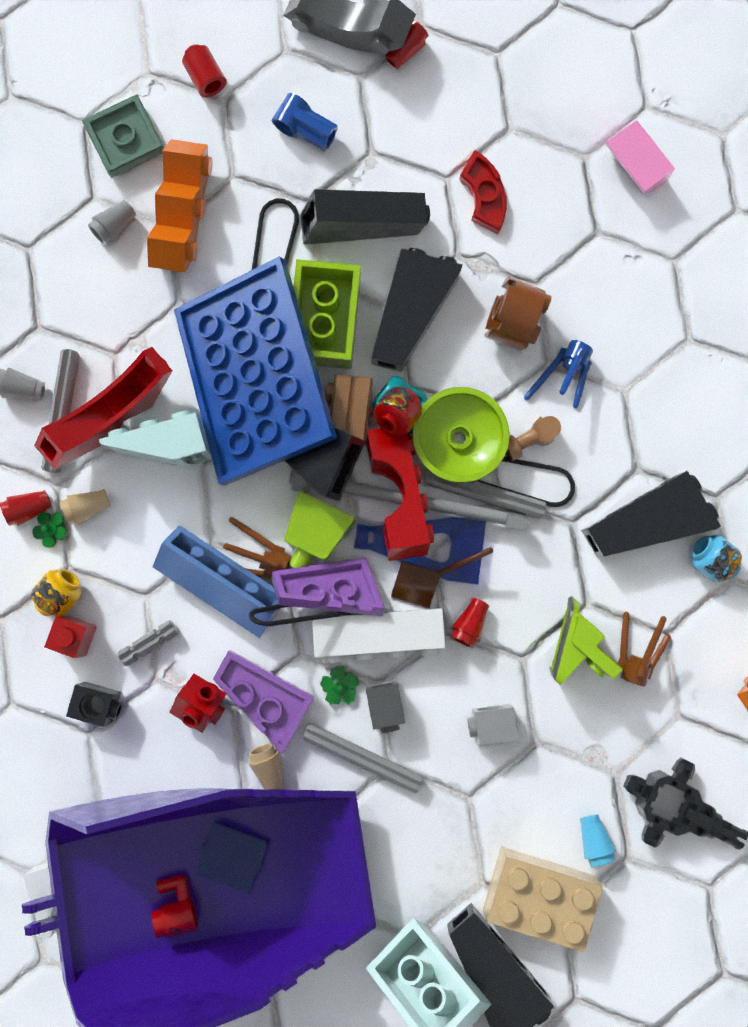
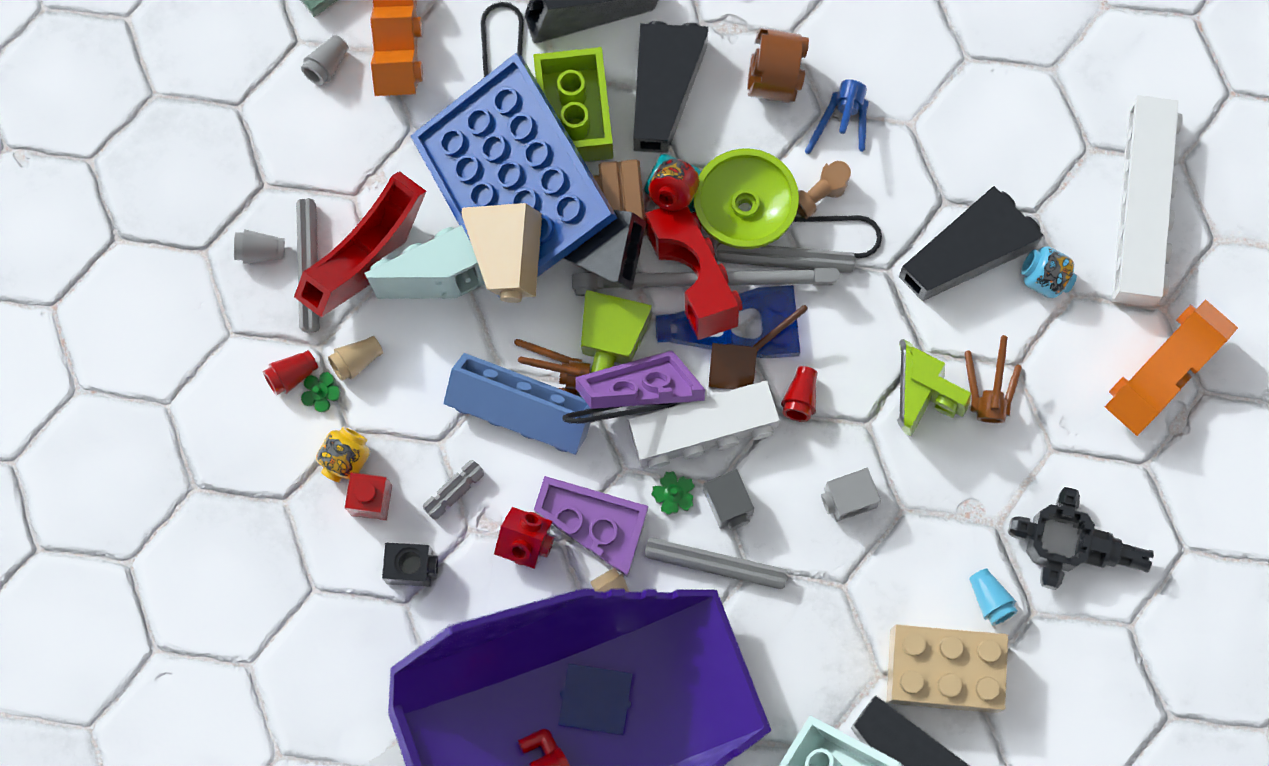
camera: 10 degrees left, 10 degrees down
(230, 444) = (506, 247): none -> slope

